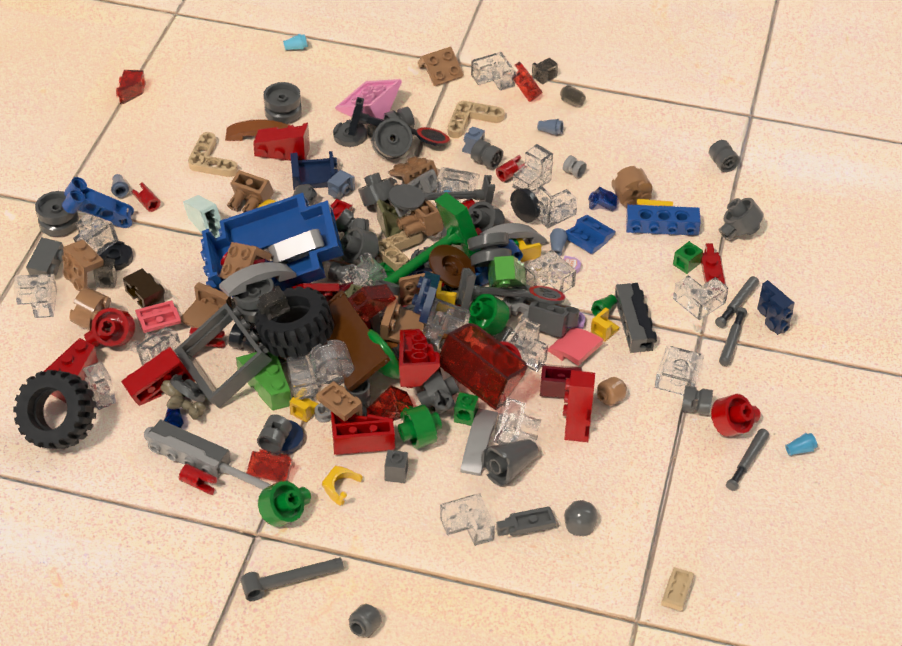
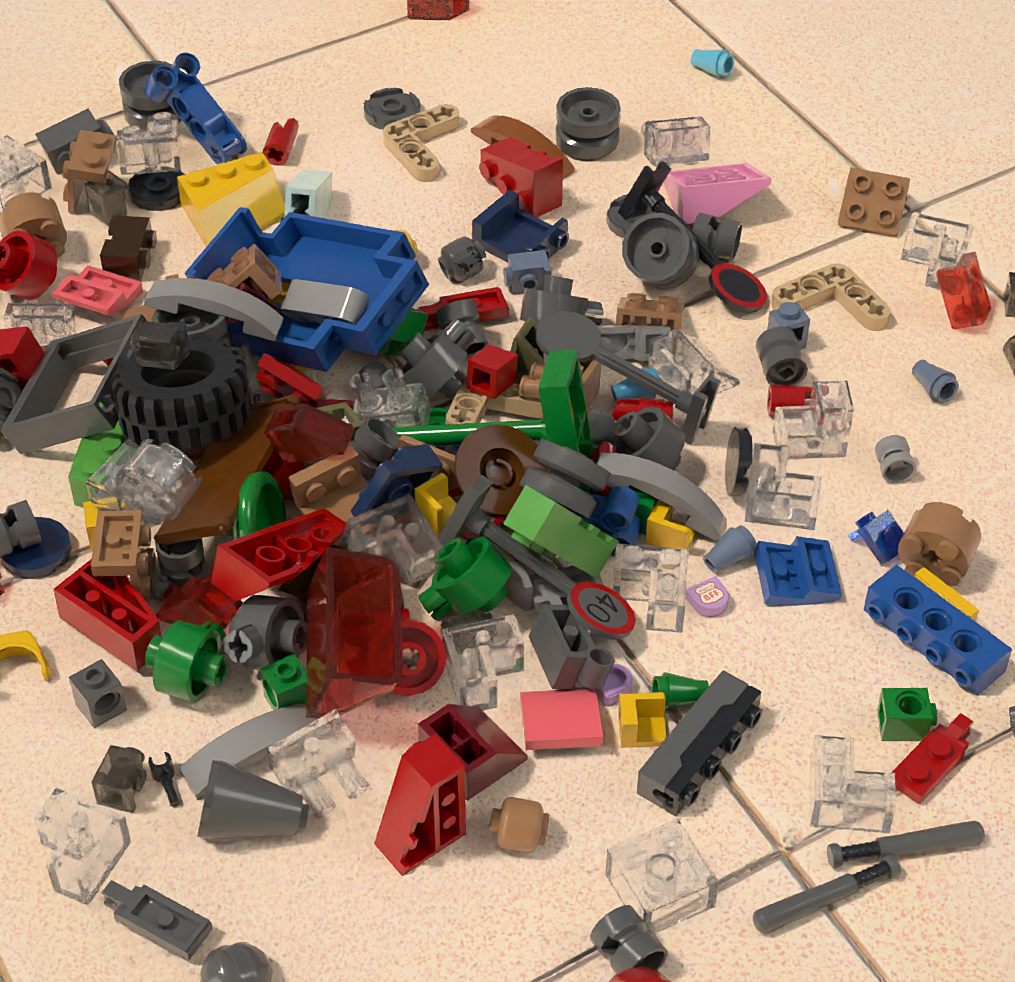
camera: 45 degrees right, 0 degrees up
(119, 186) = (268, 109): sand blue cone -> none
(163, 239) = (218, 191): none -> yellow wedge
(175, 151) = (390, 106): none -> dark grey tile
(250, 188) = (405, 205): medium nougat brick -> none
(329, 88) = (676, 140): none -> clear brick
(387, 233) = (491, 371): none -> red brick
(447, 487) = (119, 778): none -> clear smoke brick
(455, 476) = (164, 774): none -> black hand
(775, 307) = (938, 902): dark blue plate -> none

